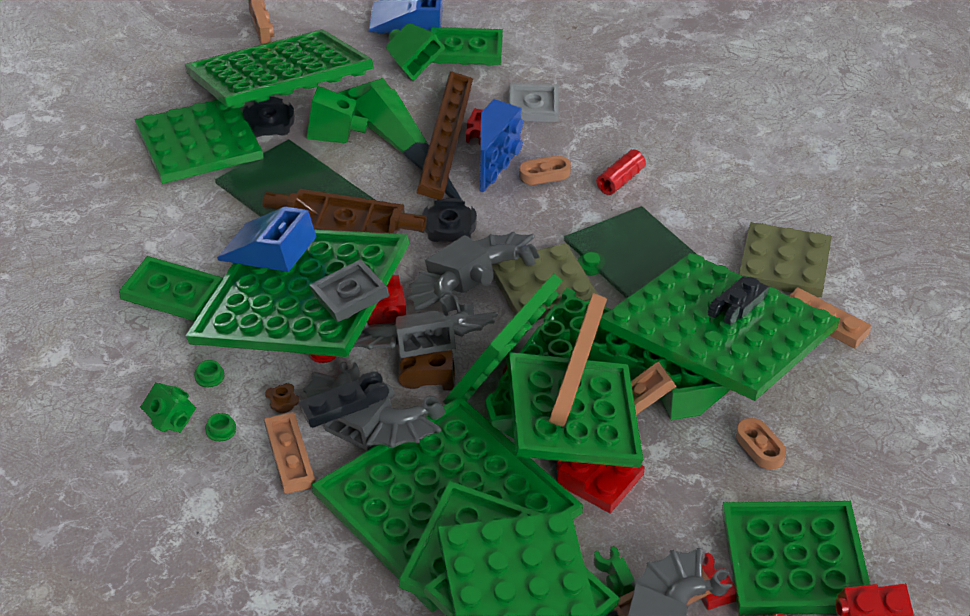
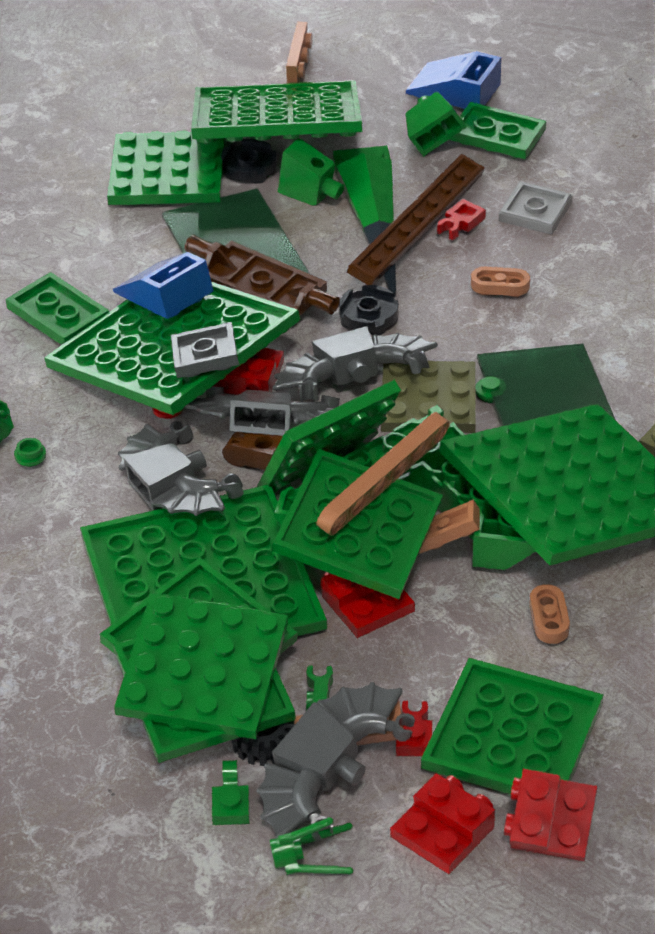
camera: 25 degrees right, 0 degrees up
(209, 373) = (47, 399): green plate -> none
(282, 398) = (103, 440): reddish brown plate -> none
(289, 453) = (78, 492): nougat plate -> none
(344, 399) = (146, 454): black hinge -> none
(499, 139) = (458, 238): blue slope -> none
(621, 172) = (580, 302): red axle -> none
(739, 299) = (601, 461): black hinge -> none

